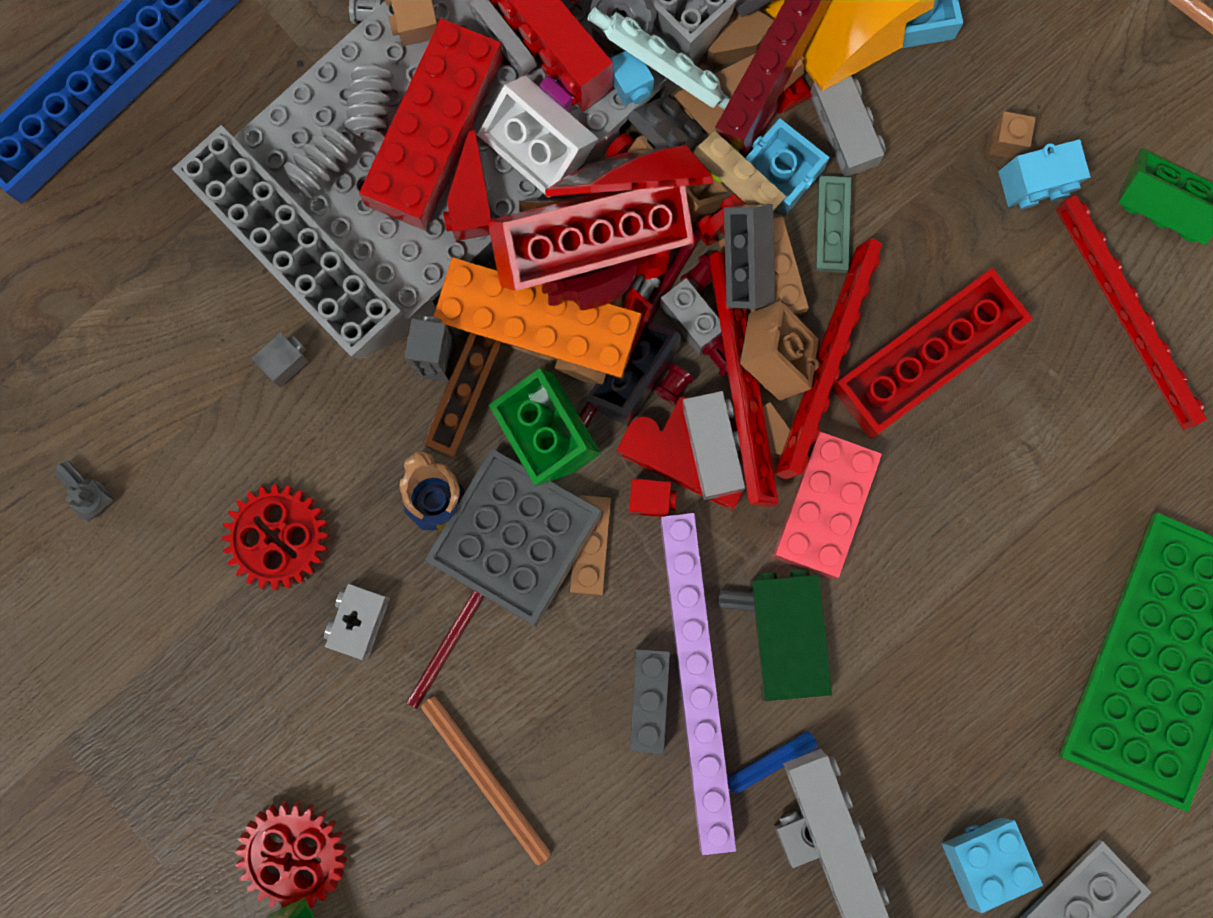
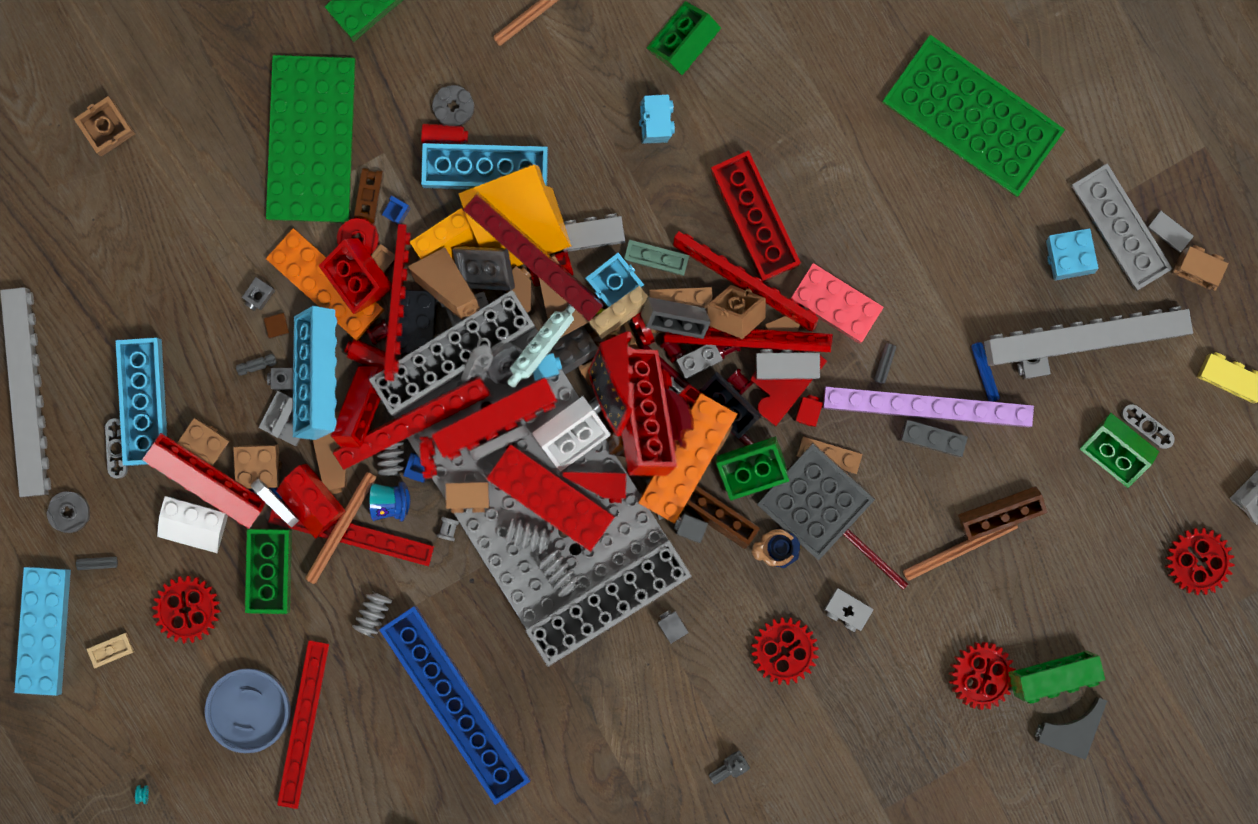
camera: 80 degrees left, 5 degrees up
(553, 837) = (1002, 513): none -> reddish brown brick
(557, 93) = (548, 415): magenta tile -> none
(620, 145) = (578, 382): red tile -> none
(791, 636) = (912, 343): dark green panel -> none
(1012, 135) = (623, 131): medium nougat brick -> none
(1136, 322) = (744, 86): red plate -> none

